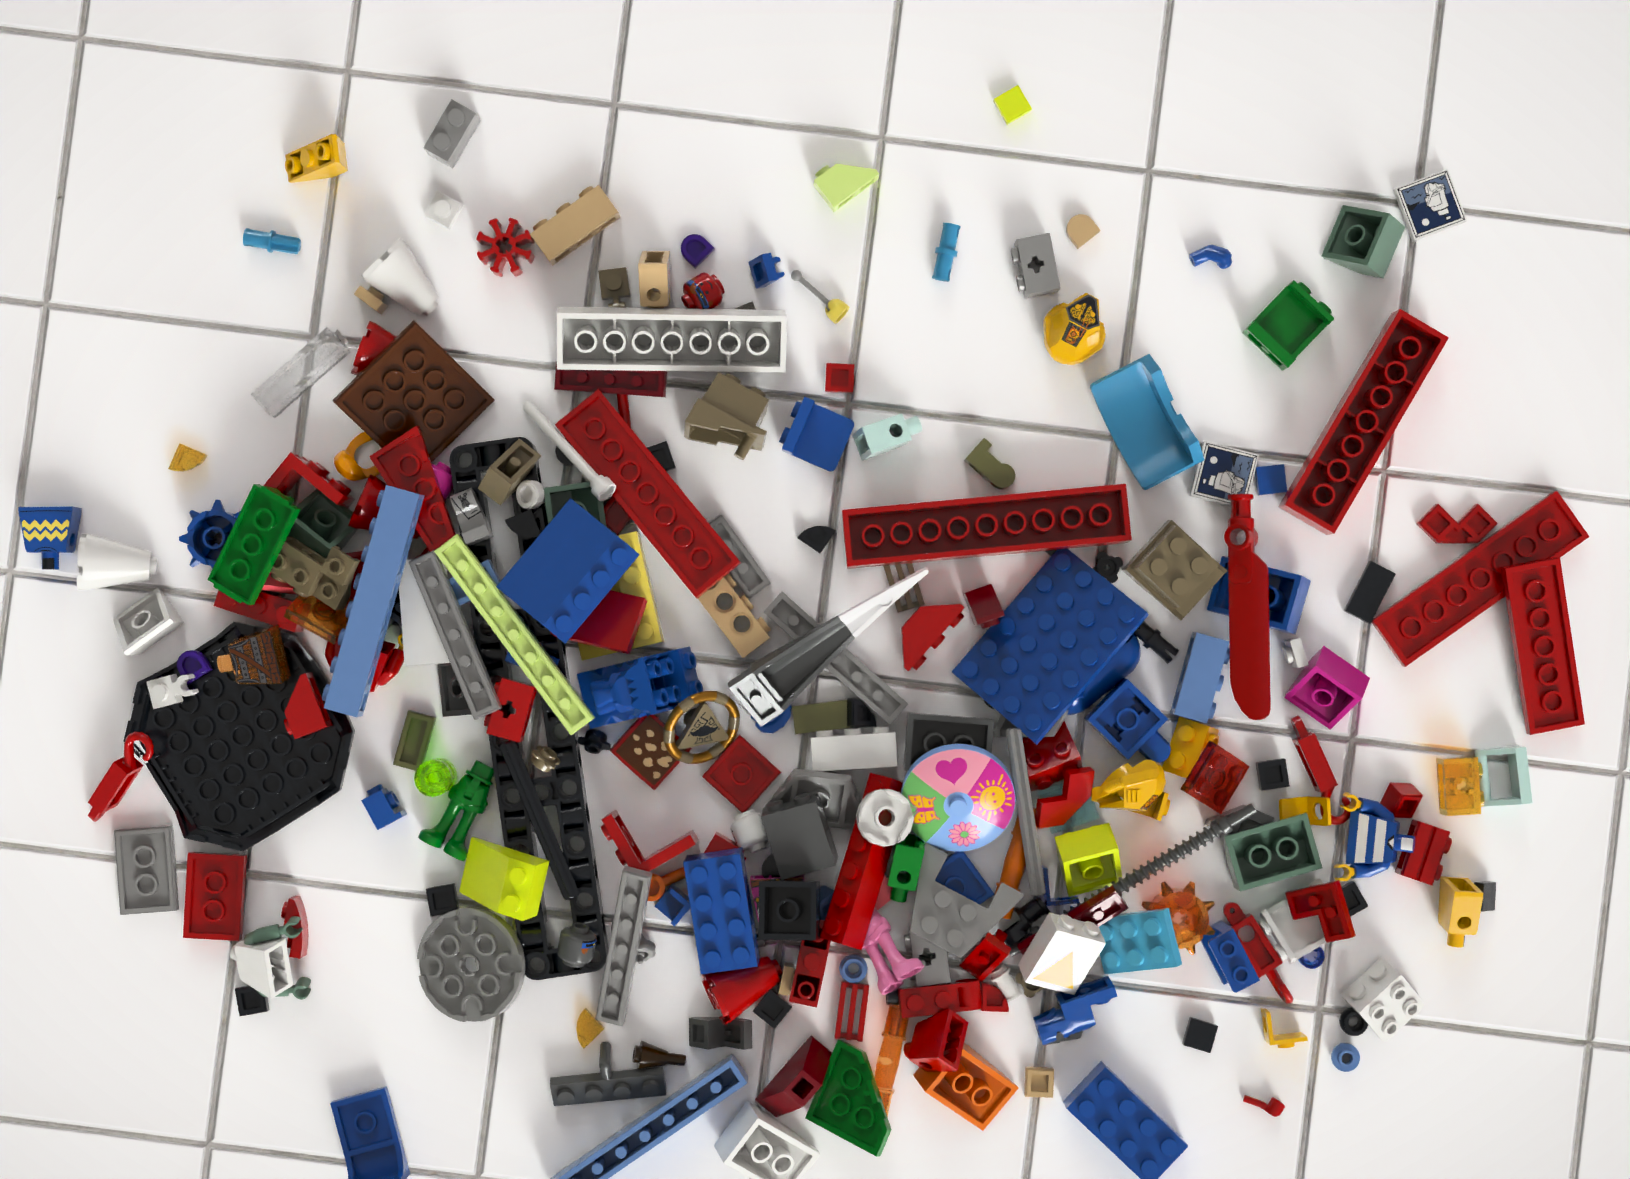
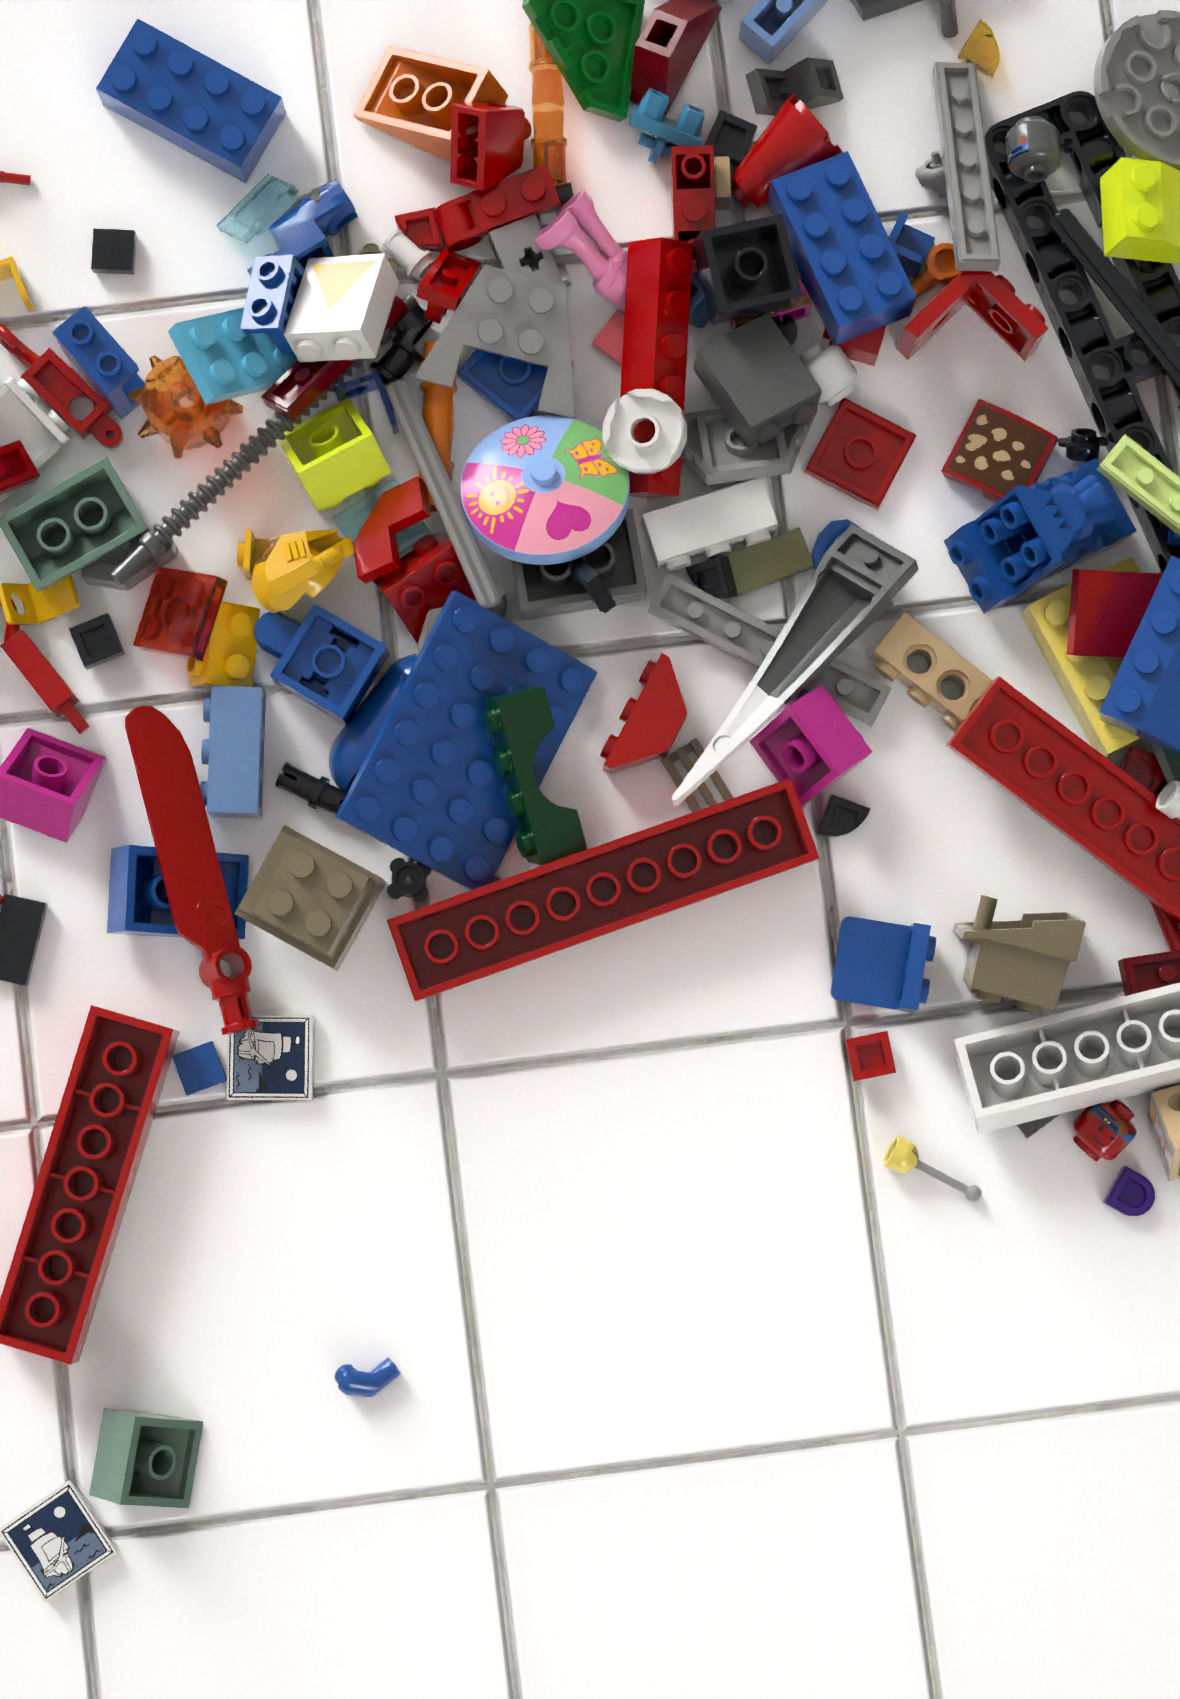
camera: 160 degrees right, 5 degrees down
(544, 758) = (1150, 396): dark tan plate -> none
(648, 1056) = (885, 31): dark brown cone -> none
(663, 455) = (1096, 877): black tile -> none
(700, 727) = (938, 498): piece -> none
(748, 573) = (926, 740): light grey tile -> none
(764, 270) = (1023, 1186): blue tile -> none
(817, 1023) = (650, 118): none -> dark azure hips
(825, 586) = (811, 744): none -> dark pink slope
(843, 183) = (942, 1346): yellowish green slope -> none
(848, 1035) = (613, 129): red tile -> none
(853, 977) = (629, 210): medium blue plate -> none
(876, 437) = (797, 977): light aqua torso -> none
(905, 857) = (594, 375): green torso -> none
(944, 723) = (594, 585): none -> black tile
(946, 252) = (762, 1283): dark azure pin -> none
(984, 463) = (602, 973): olive leg -> none
(984, 606) = (576, 773): dark red slope -> none
(1012, 104) = (719, 1532): neon yellow tile -> none
(1014, 645) = (518, 726): none -> dark green arch
(1039, 1082) = (326, 131): tan tile -> none
(1041, 251) = (624, 1321): light grey brick -> none
(1074, 330) = (543, 1214): yellow helmet -> none
(1081, 230) = (570, 1369): tan tile -> none
(1098, 1037) = (259, 209): none -> clear light blue piece
(1106, 972) = (271, 298): none -> blue bracket
(1144, 423) = (404, 1102): dark azure panel -> none
(1288, 324) = (228, 1304): green panel -> none
(1295, 653) = (106, 822): white plate -> none

